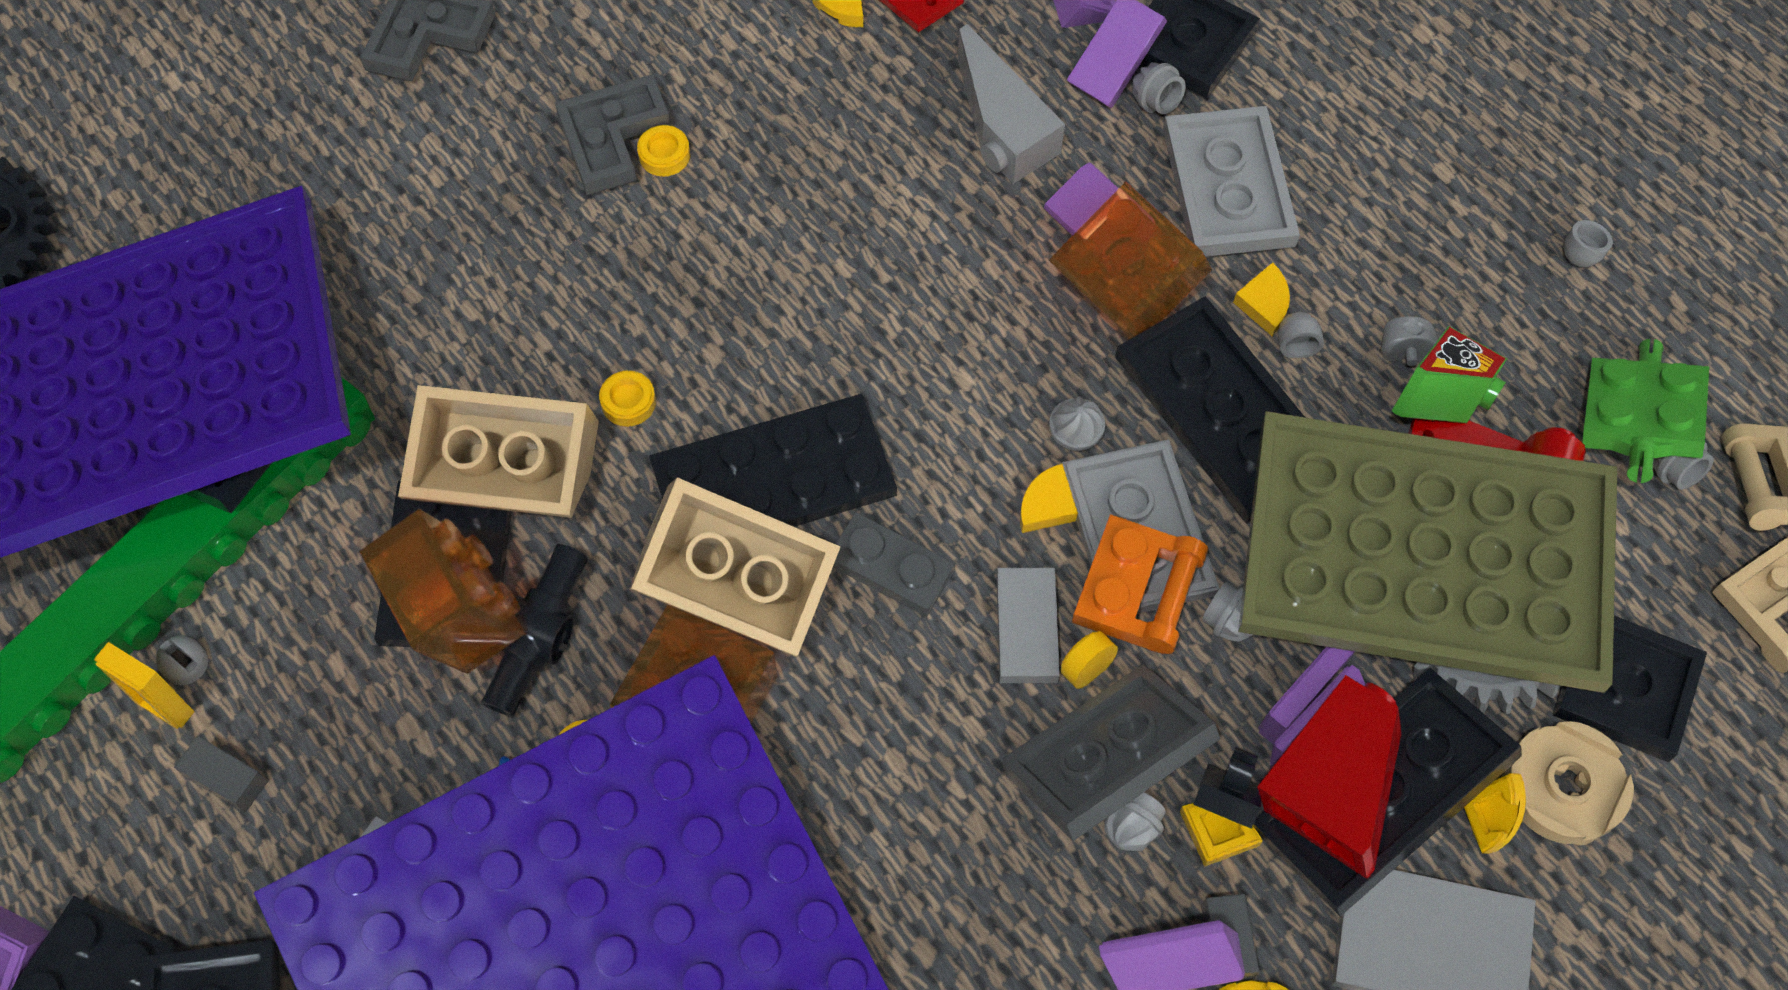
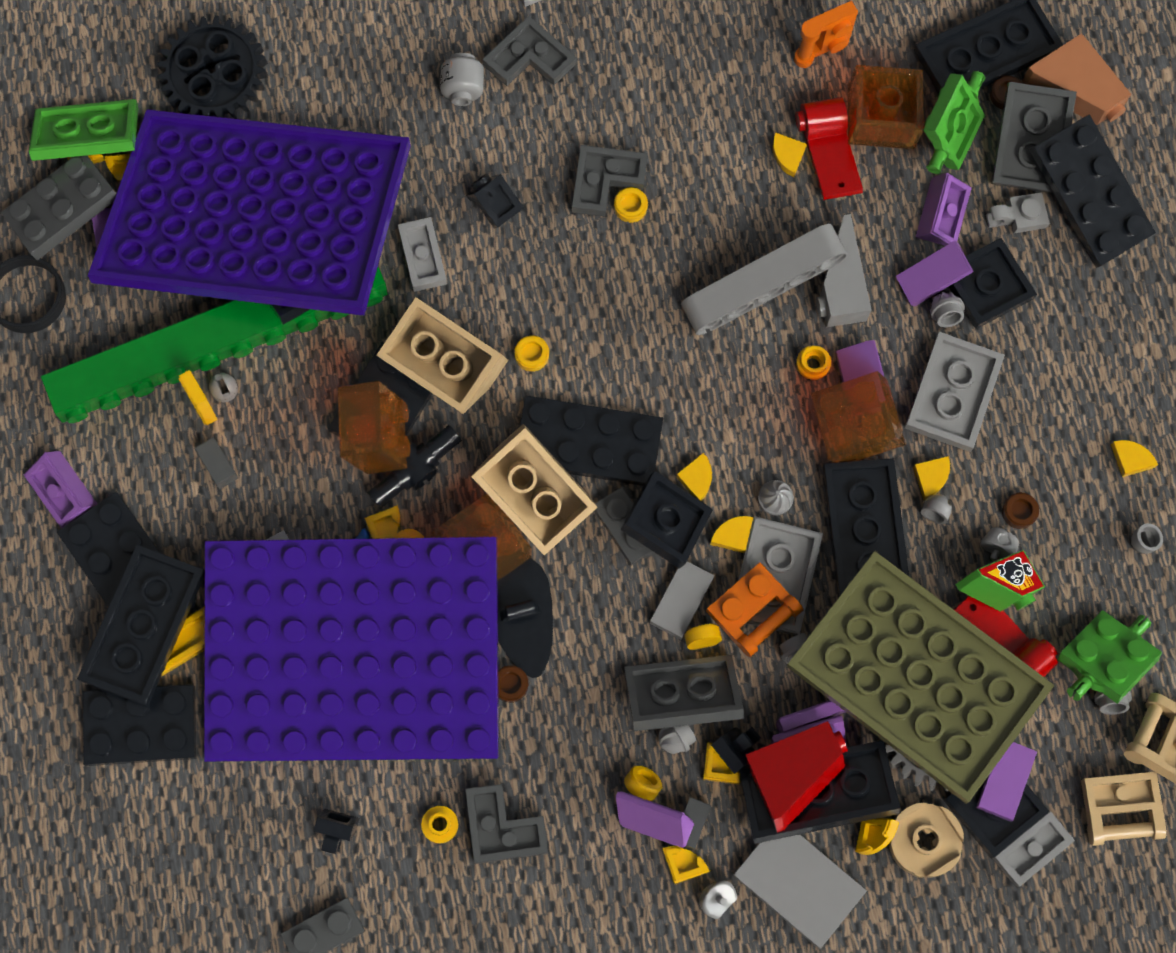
camera: 25 degrees right, 10 degrees up
(343, 92) = (462, 79): none -> light grey head
(399, 339) = (422, 254): none -> light grey plate
(469, 221) = (495, 199): none -> black bracket
(527, 731) = (384, 523): none -> yellow tile
(819, 766) = (526, 617): none -> black shield
(850, 871) = (512, 684): none -> reddish brown tile
(899, 151) = (764, 279): none -> light grey beam
(946, 522) = (667, 519): none -> black plate
(953, 451) = (697, 477): none -> yellow tile
(1026, 218) = (817, 353): none -> yellow plate
(1125, 914) = (643, 783): none -> yellow tile
(1405, 287) = (1020, 510): none -> reddish brown tile
(1500, 157) = (1132, 457): none -> yellow tile
(1637, 648) = (1007, 782): none -> medium lavender tile
(1720, 718) = (1033, 849): none -> light grey plate

